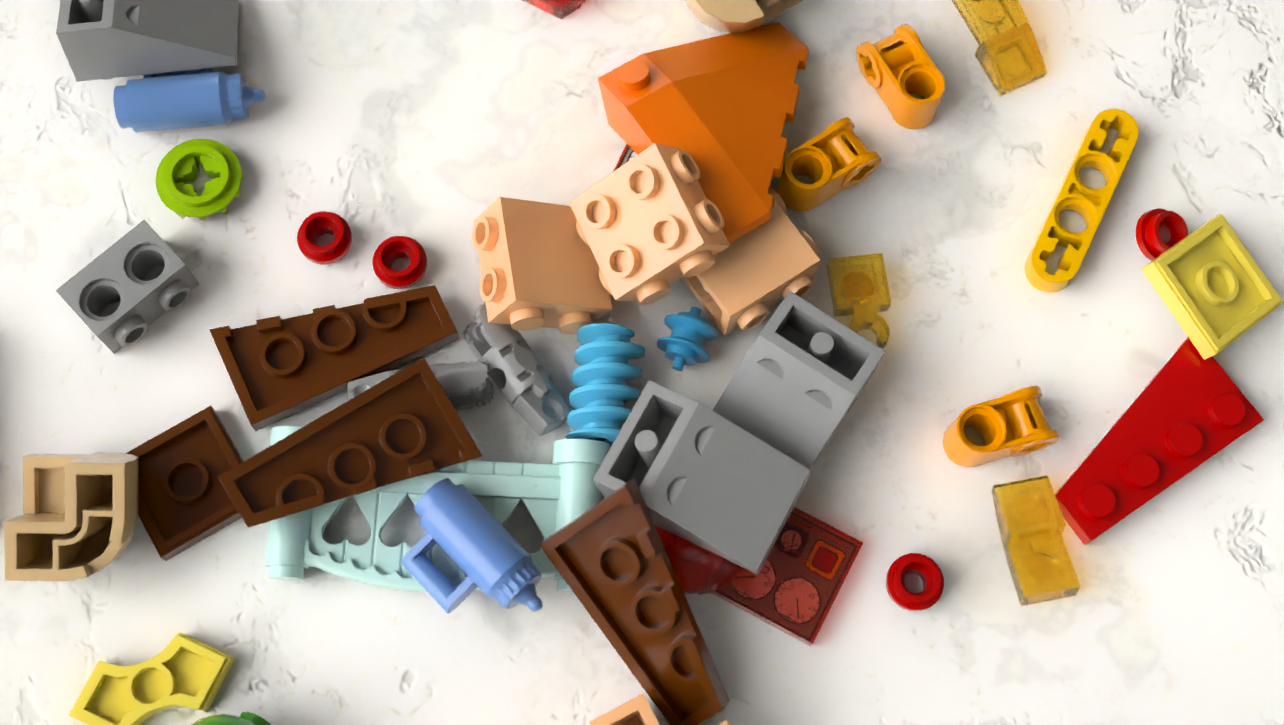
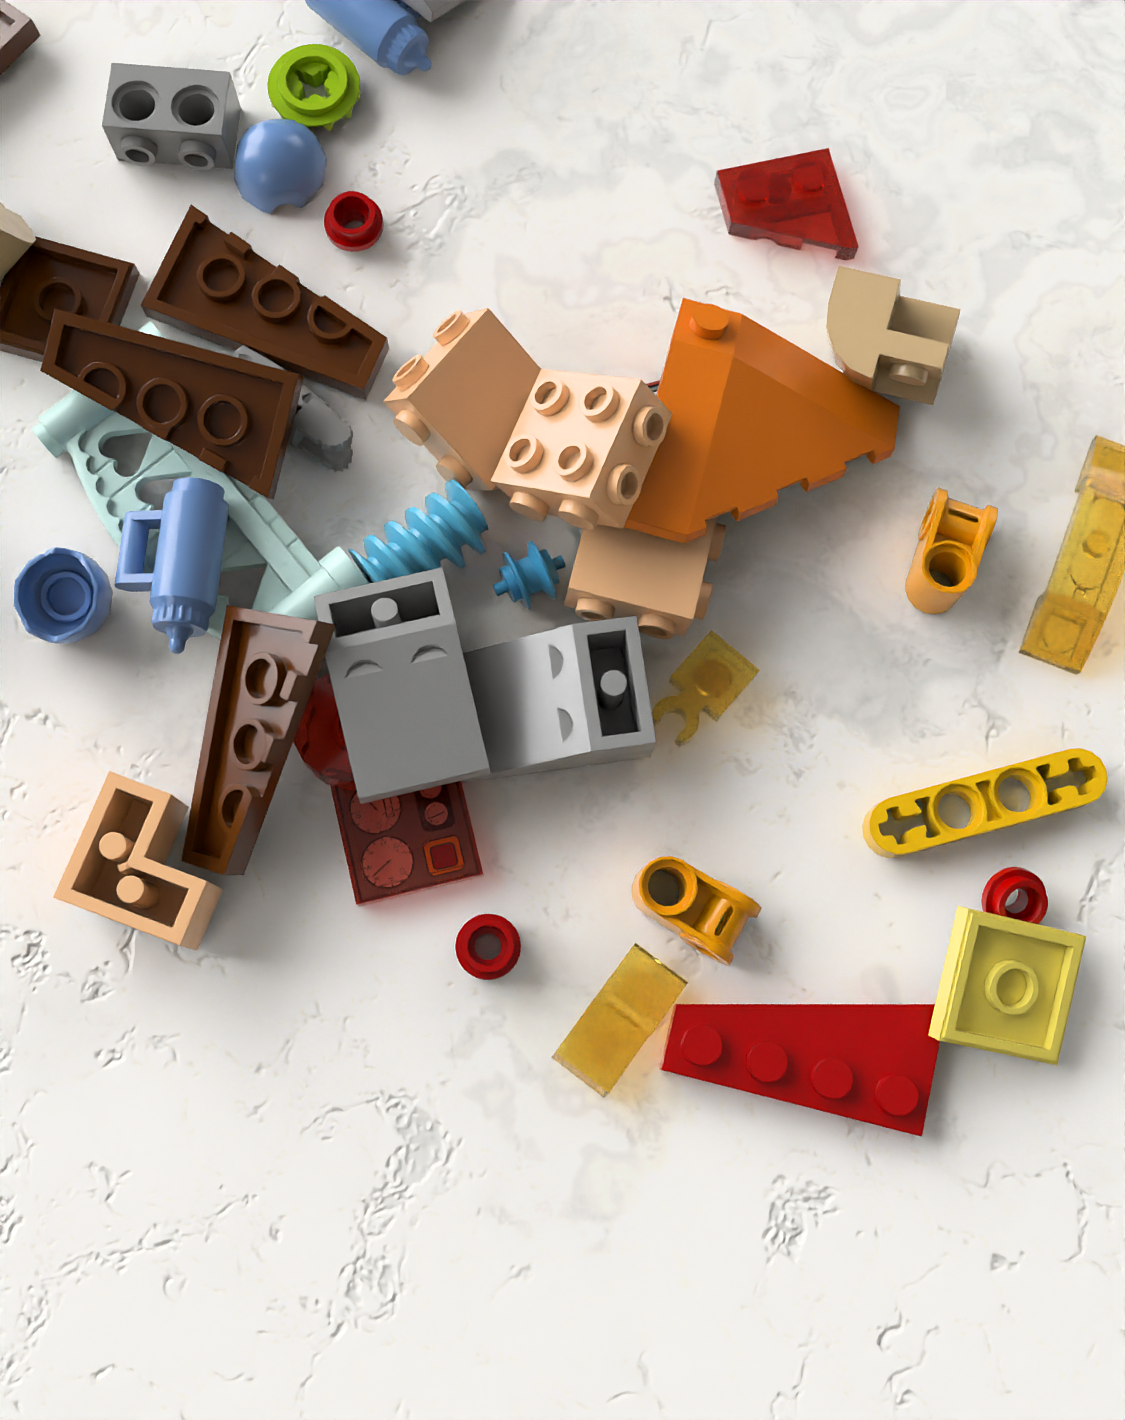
camera: 45 degrees right, 5 degrees up
(233, 250) = (279, 164): none -> medium blue hair
(396, 248) = (385, 281): red plate -> none
(416, 657) = (62, 596): none -> medium blue hair
(517, 372) = (372, 472): light grey hinge -> none
(832, 160) = (811, 558): light orange piece -> none

